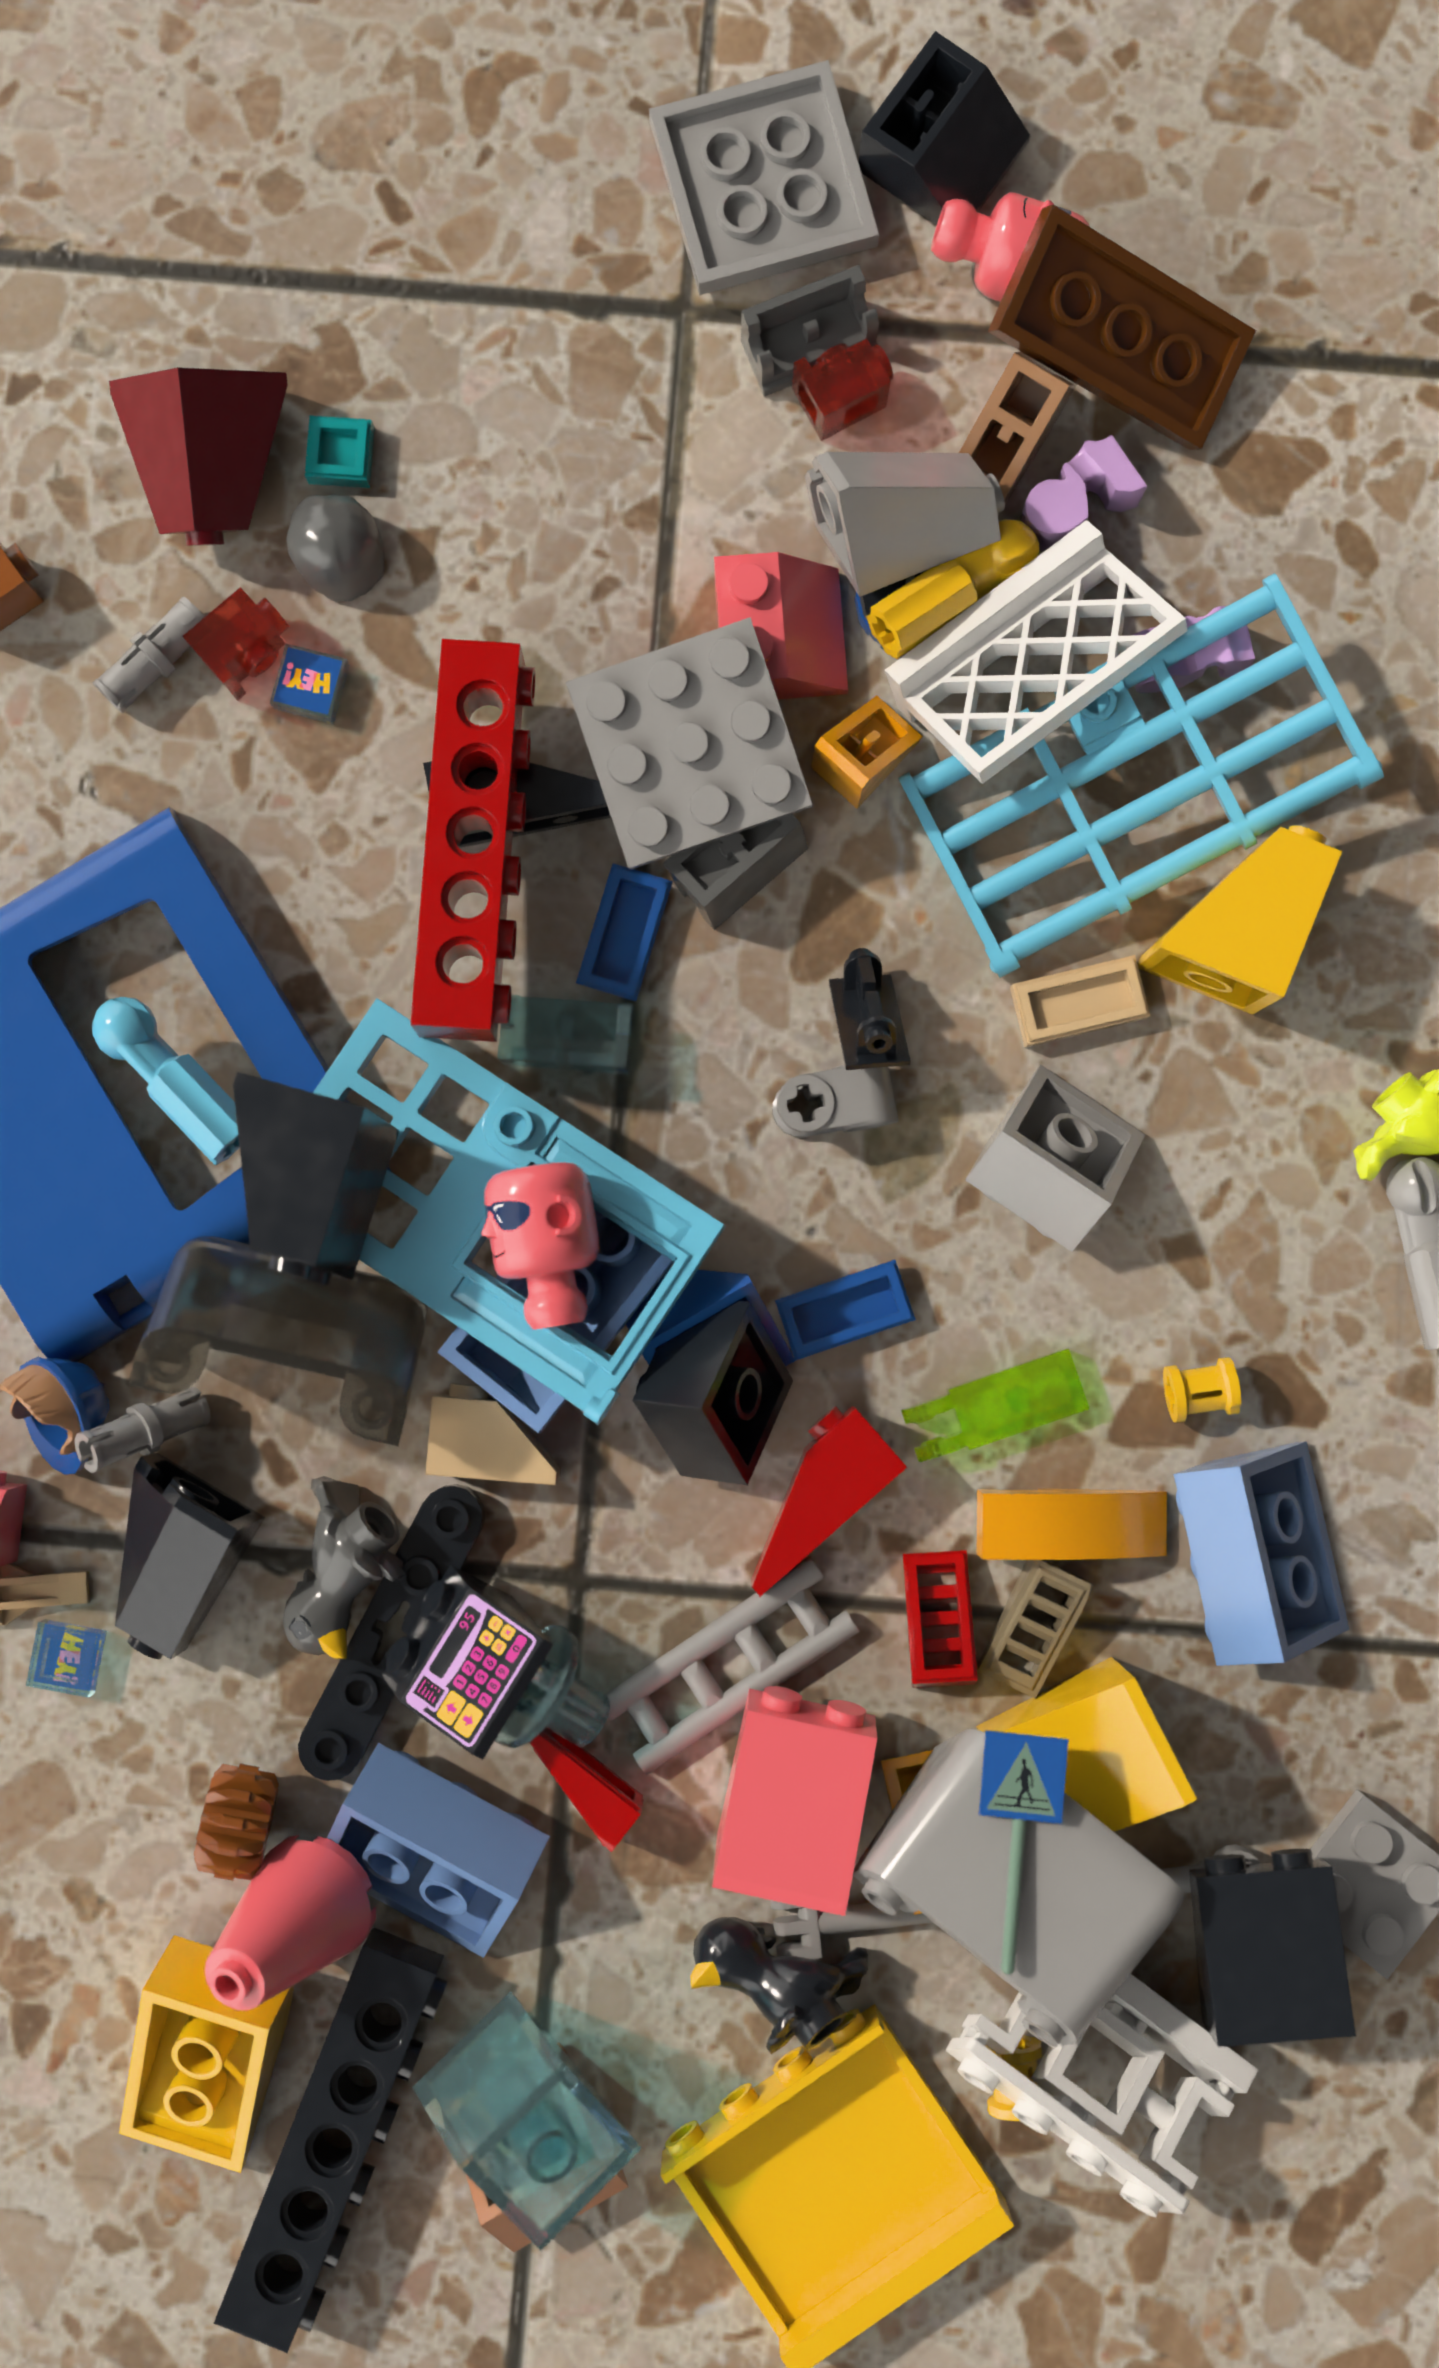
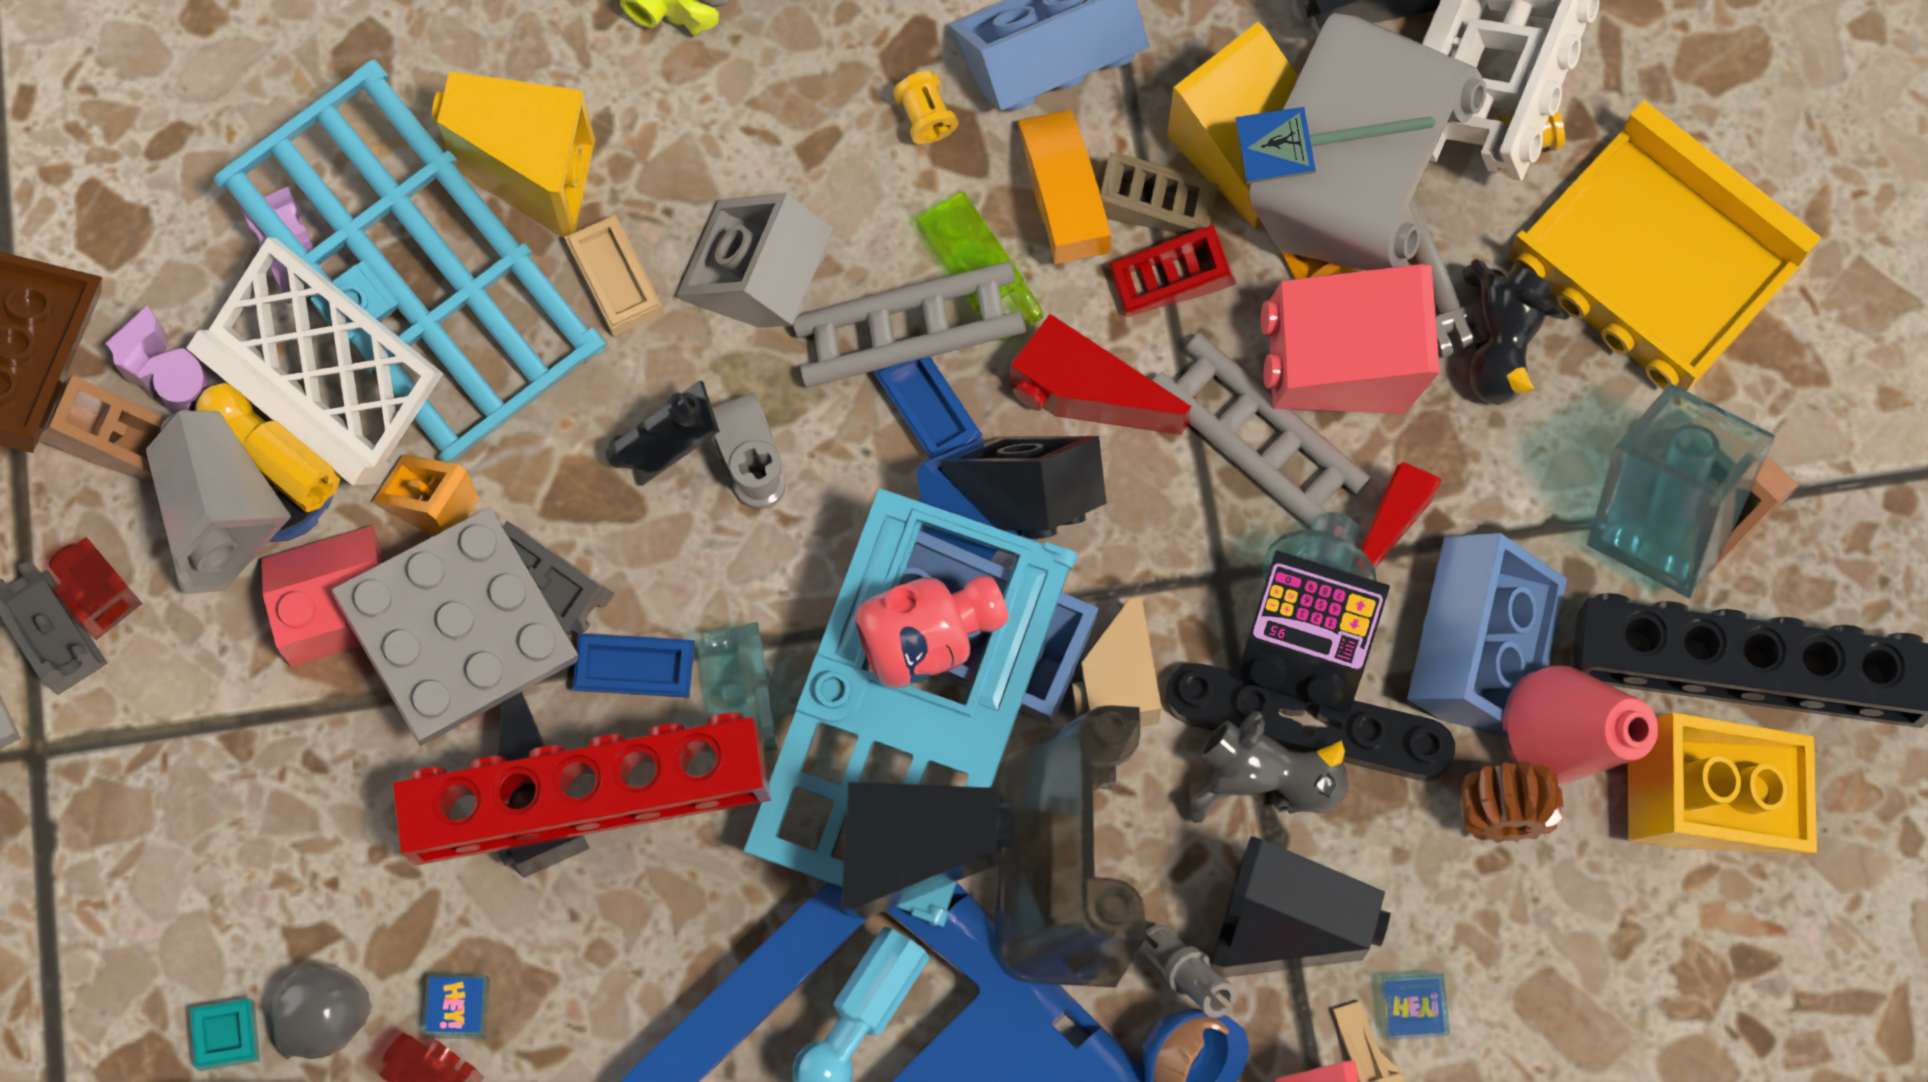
camera: 105 degrees left, 15 degrees down
(910, 1338) = (939, 336): none -> light grey bar

